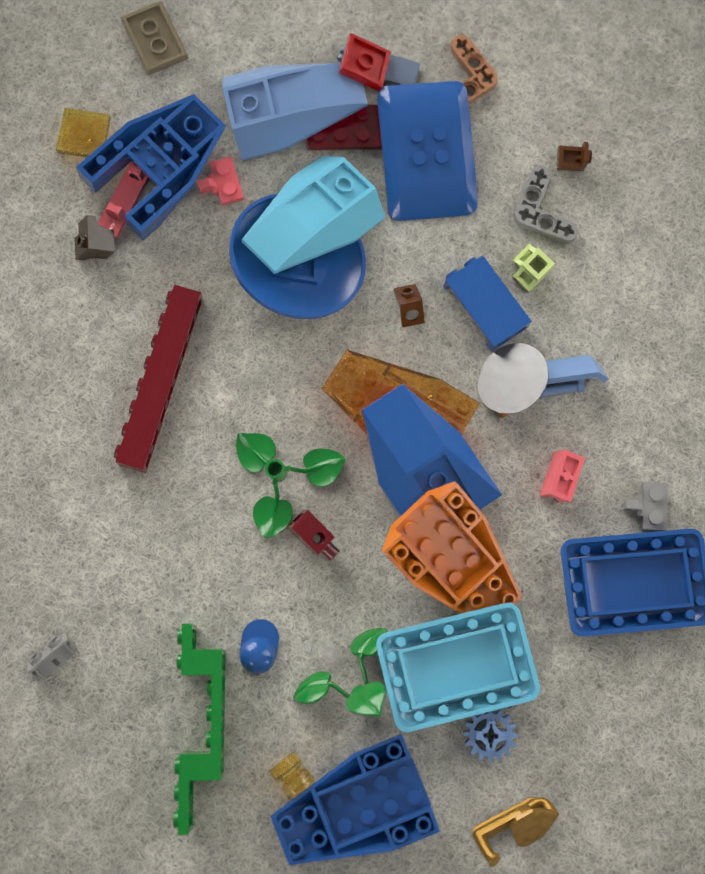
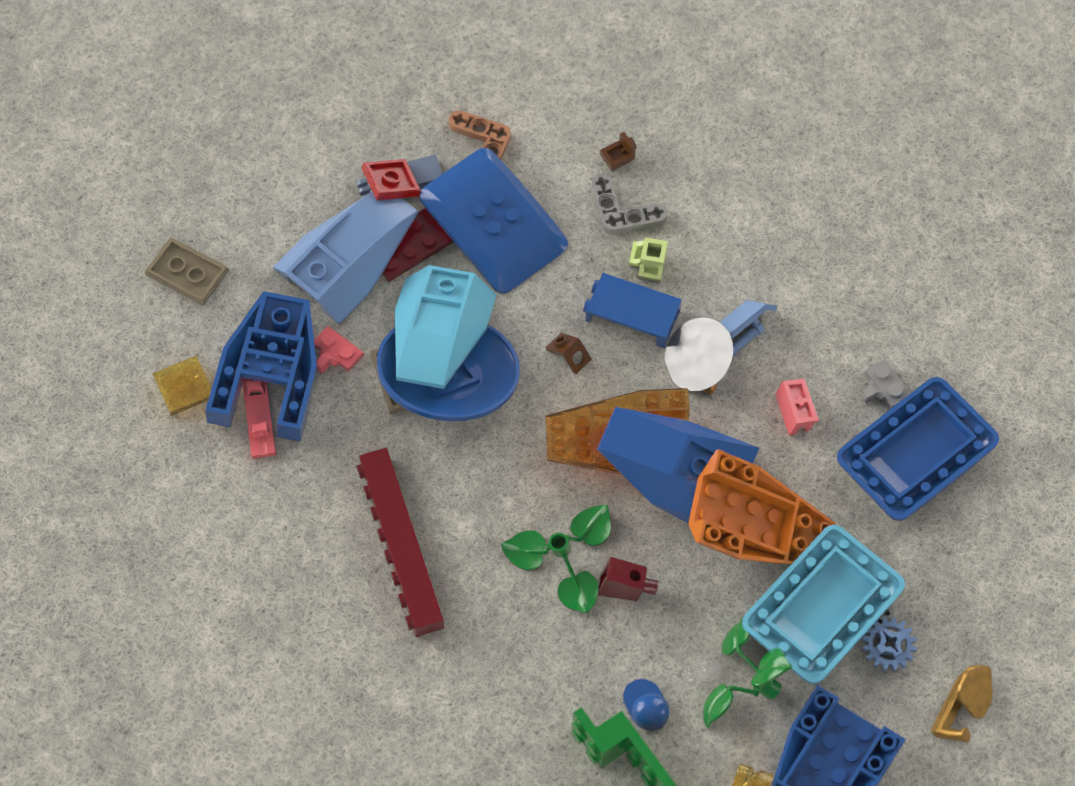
camera: 25 degrees left, 15 degrees down
(93, 240) = (259, 465): dark brown brick -> none

